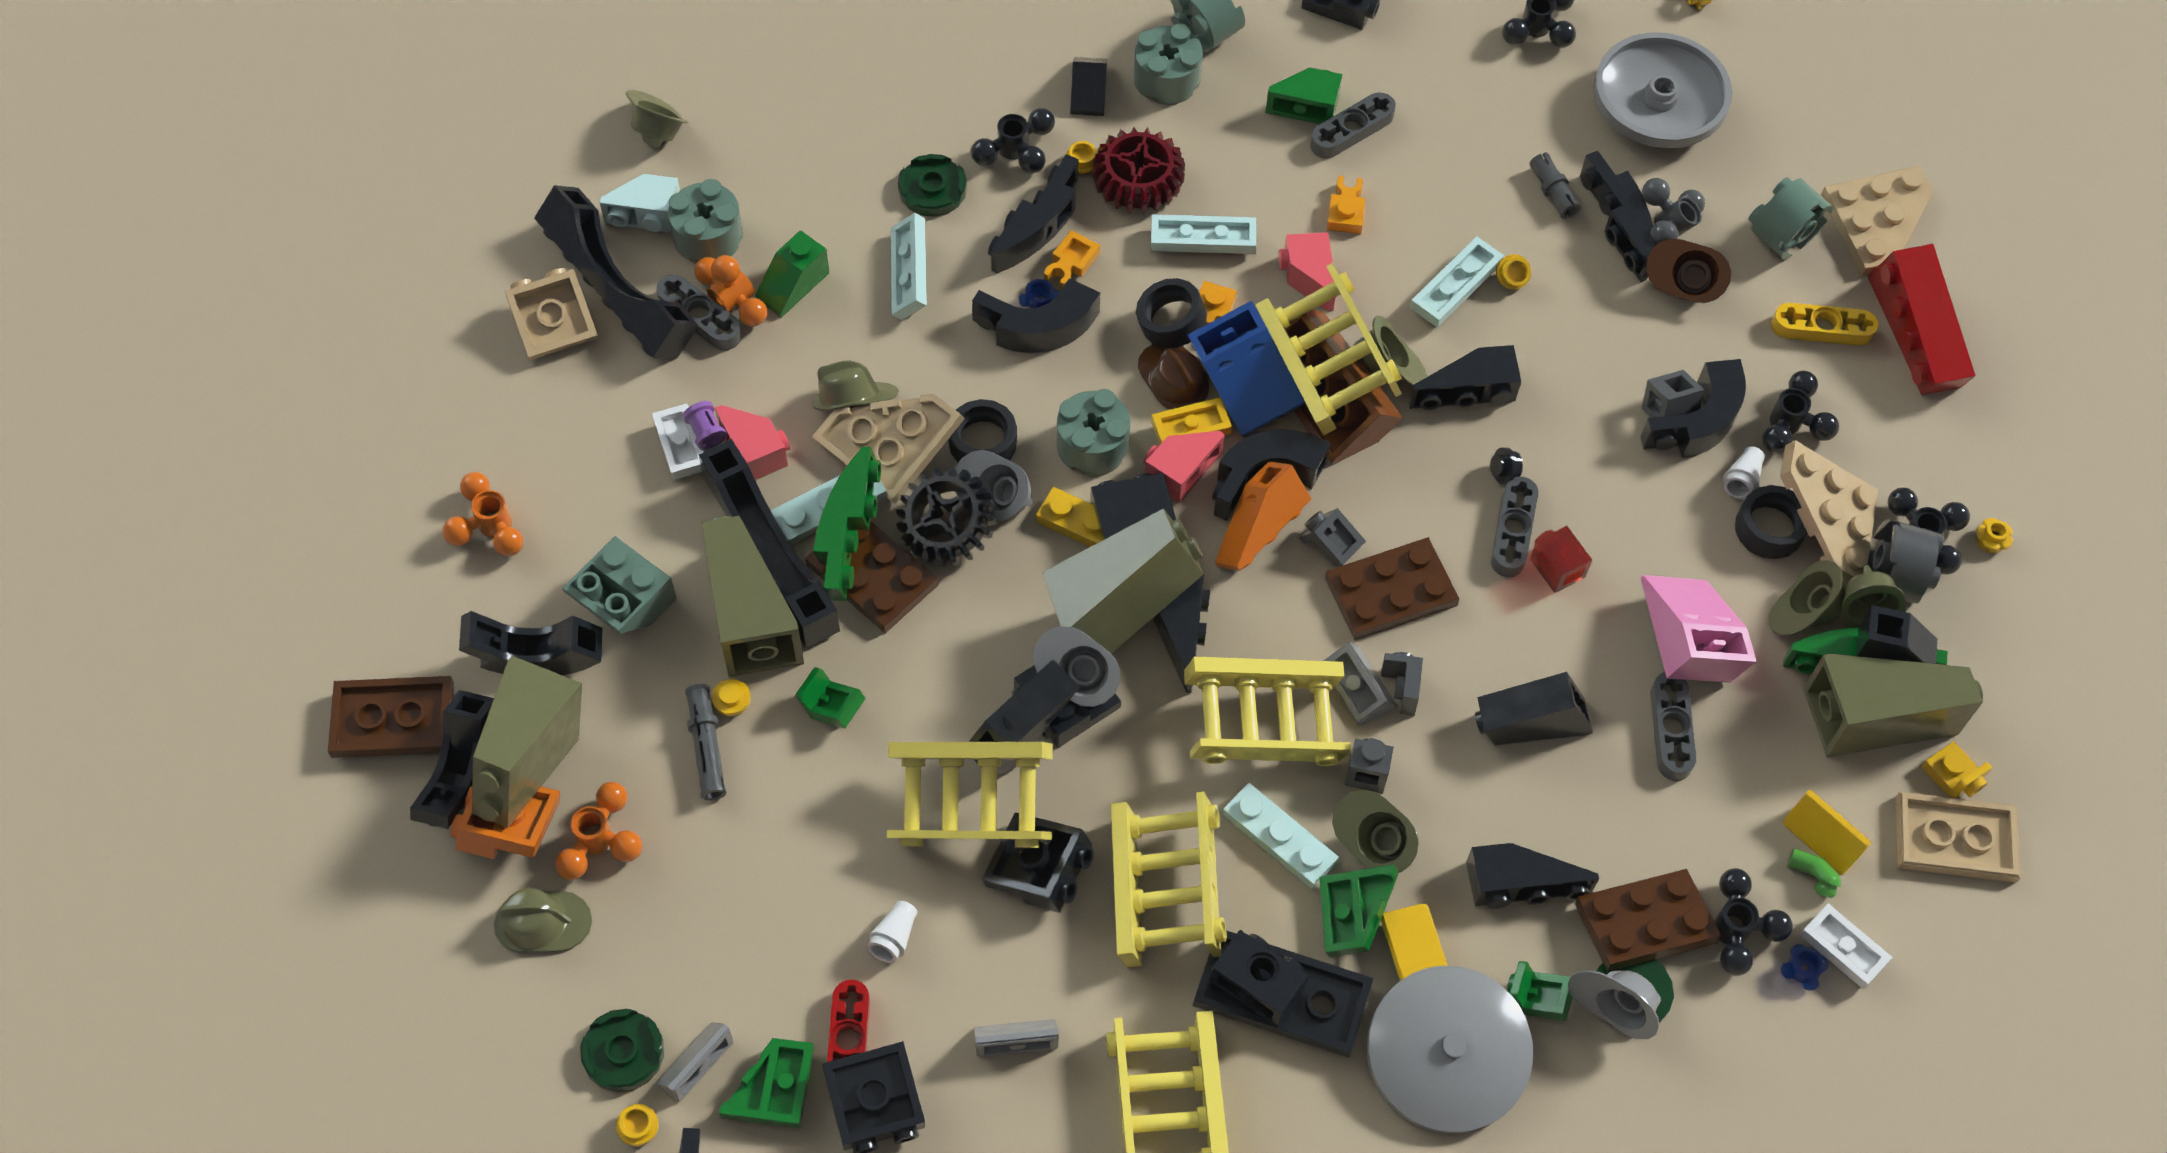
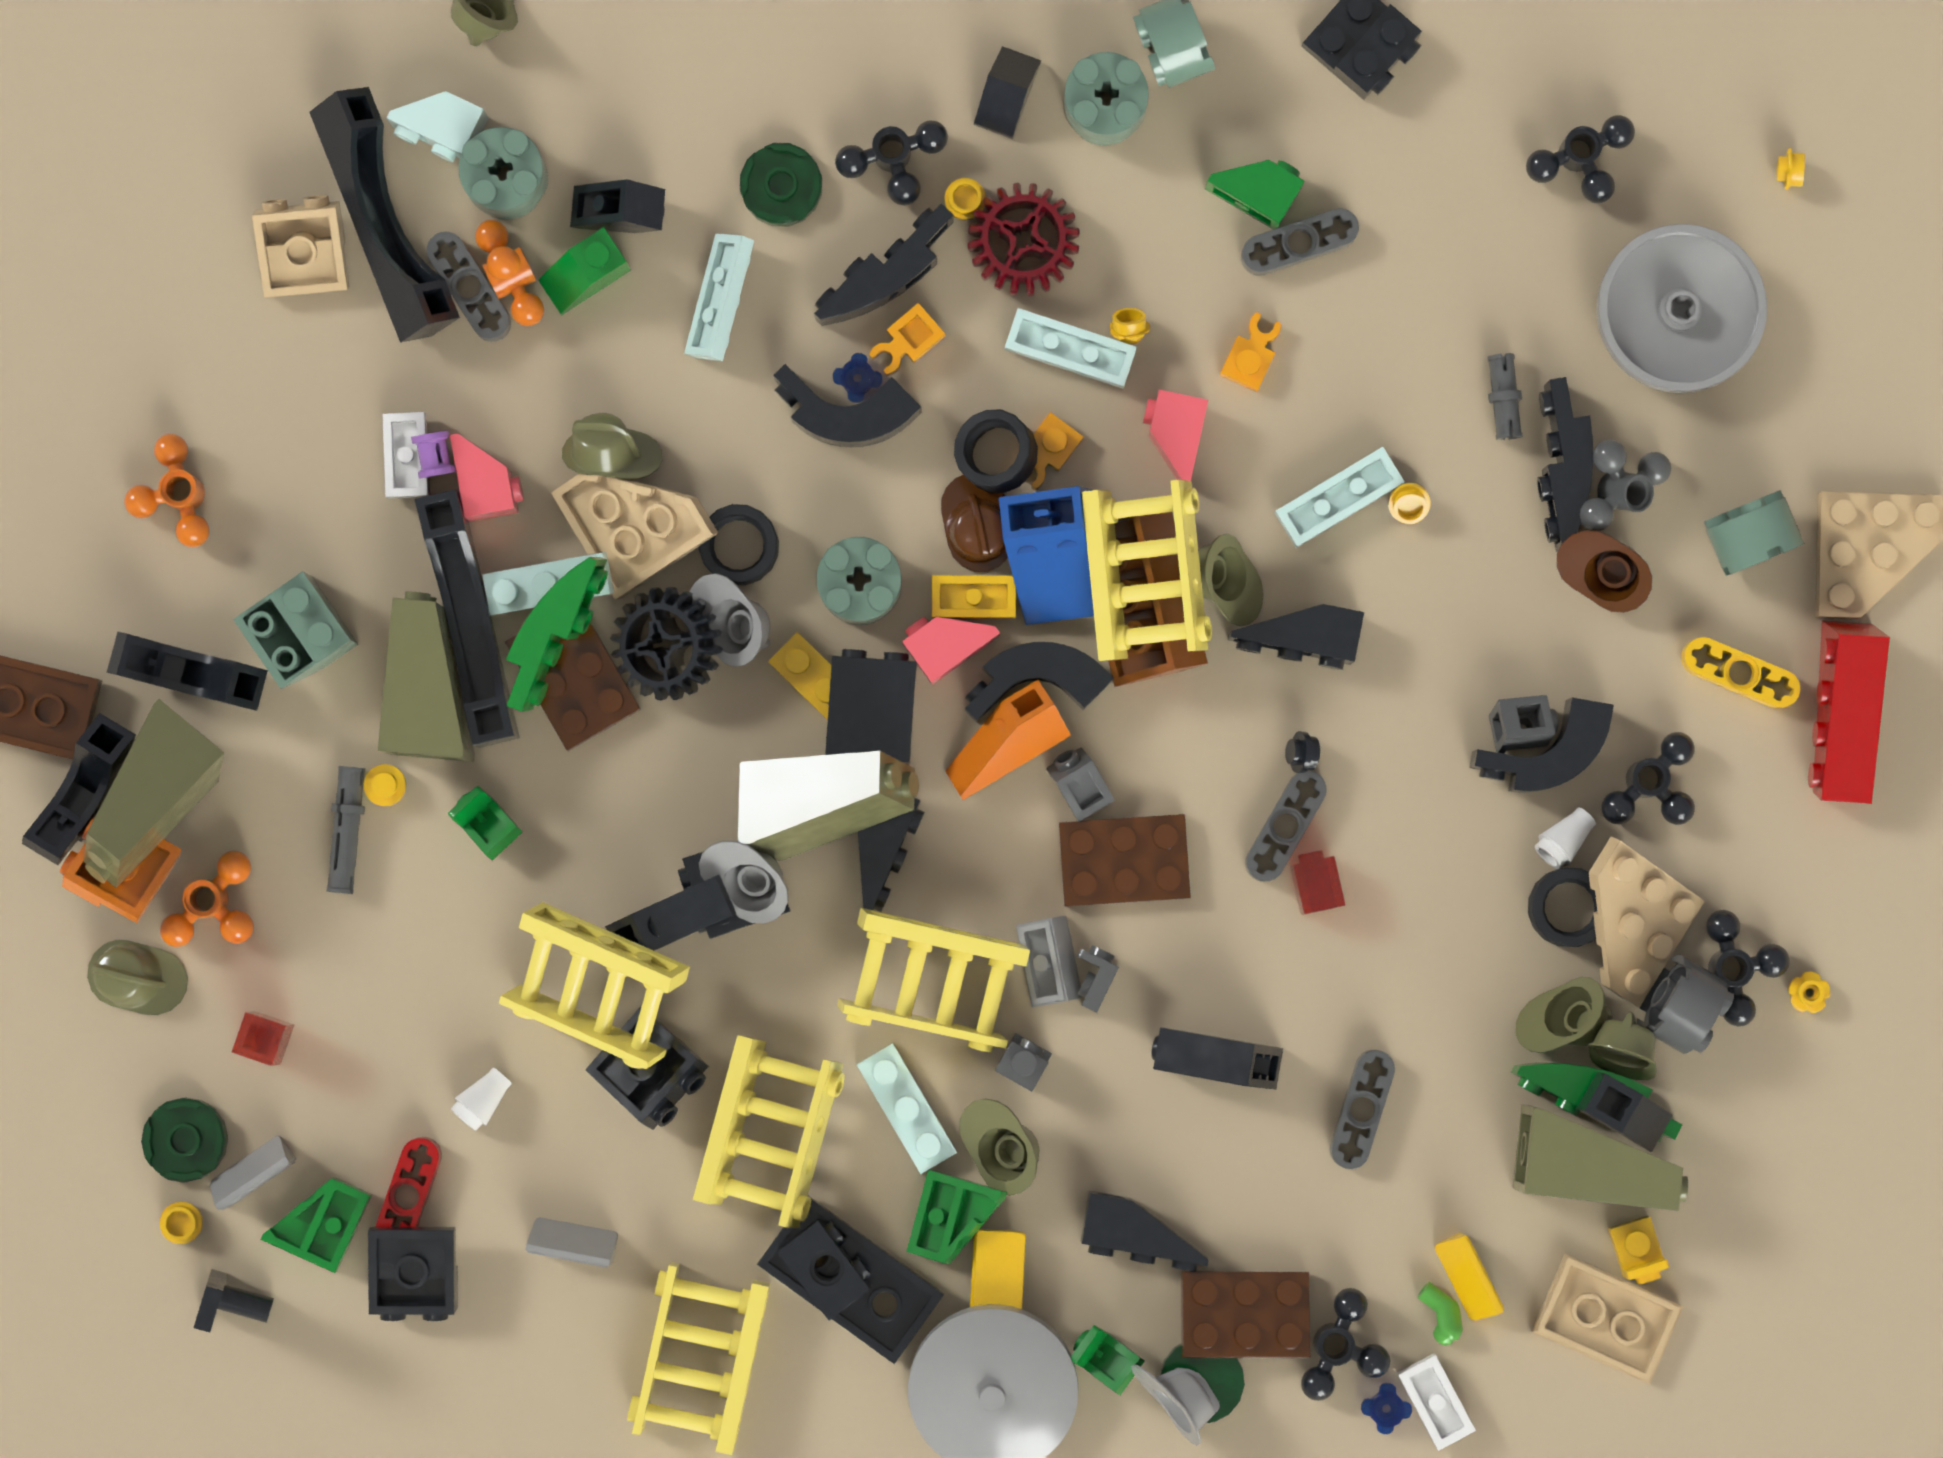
camera: 20 degrees right, 25 degrees up
(675, 929) = (263, 1038): none -> clear red brick
(812, 213) = (618, 206): none -> black slope
(1244, 206) = (1129, 325): none -> yellow plate
(1696, 630) = (1426, 1011): bright pink slope -> none

